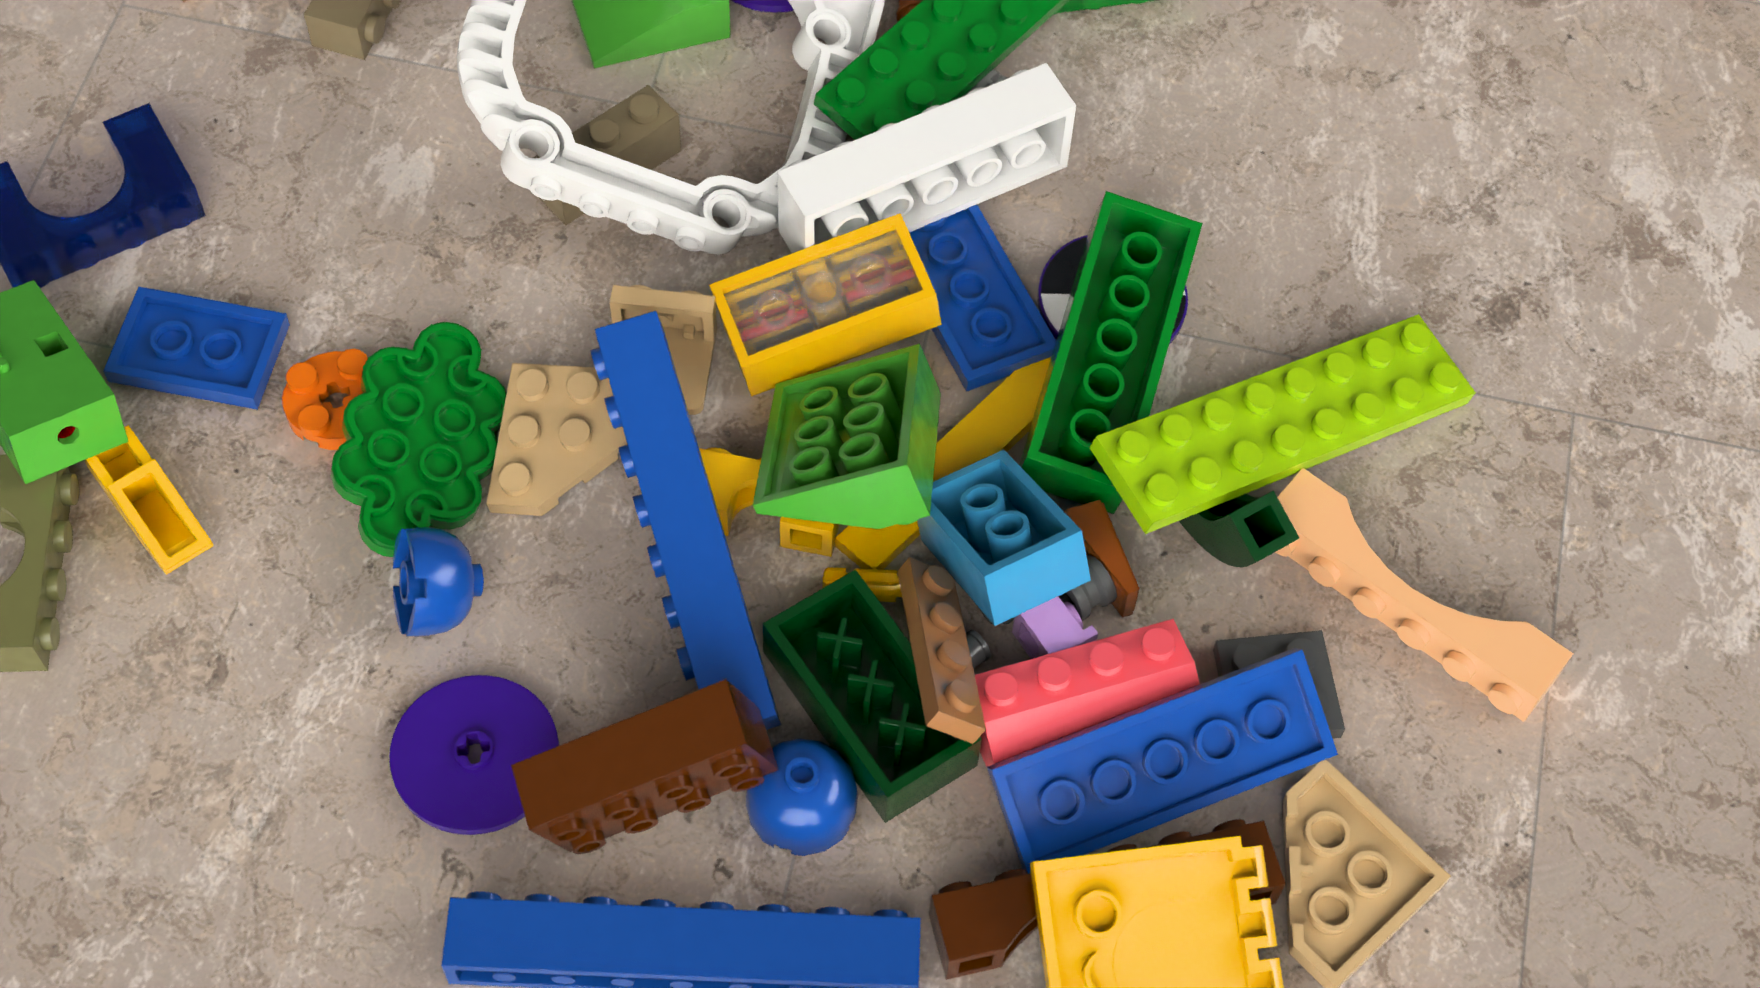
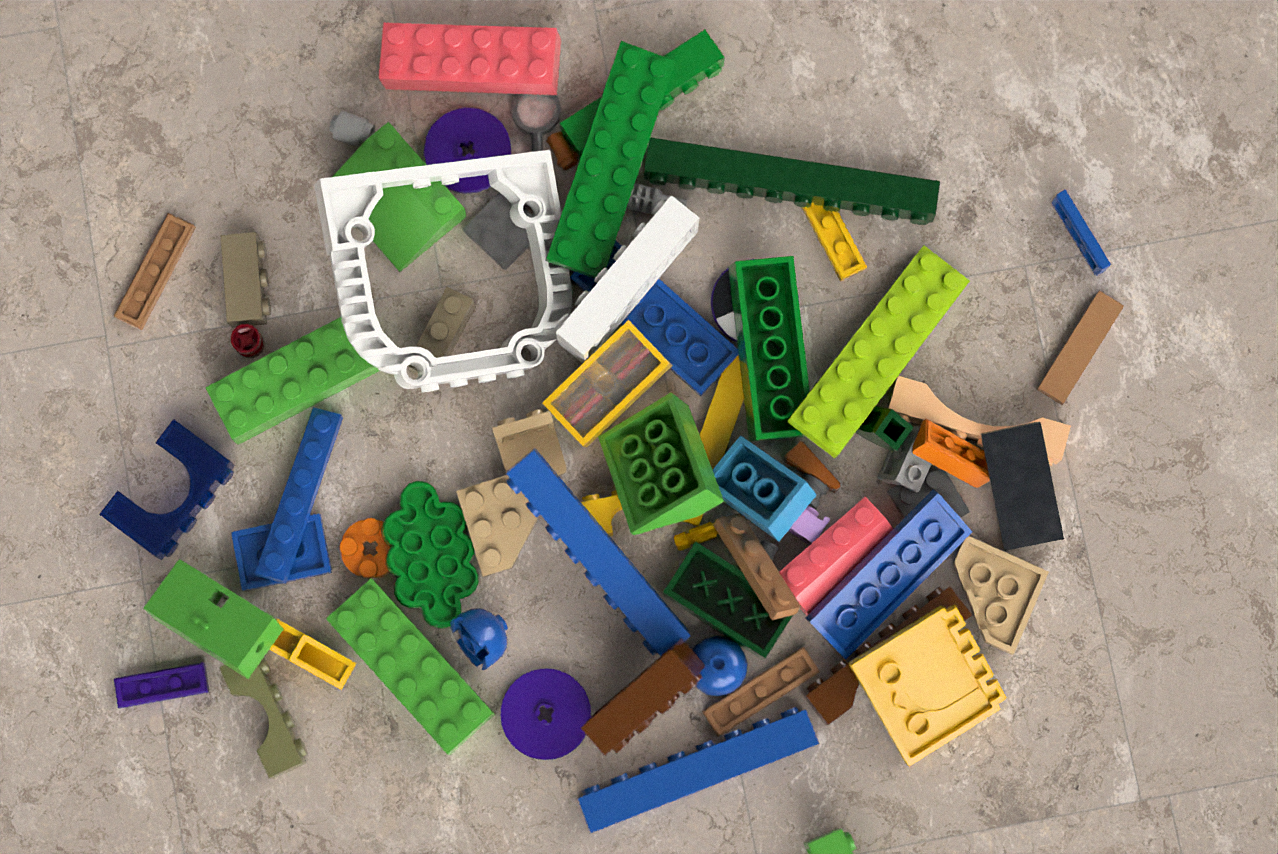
camera: 20 degrees left, 20 degrees up
(266, 279) = (299, 495): none -> blue plate
(295, 589) = (410, 666): none -> bright green brick
(320, 59) = (244, 336): none -> dark red wheel
(349, 129) = (288, 381): none -> bright green brick
(764, 68) = (497, 233): none -> flat silver tile
(858, 870) = (760, 691): none -> medium nougat tile
(1255, 161) = (791, 180): none -> dark green brick
(1275, 602) = (904, 467): none -> light grey bracket
(1277, 259) = (835, 241): none -> yellow tile
(1349, 621) = (951, 454): none -> orange slope
(1453, 717) = (1022, 486): none -> black tile
(1627, 560) = (1080, 347): none -> medium nougat tile
(1686, 393) = (1080, 233): none -> blue tile

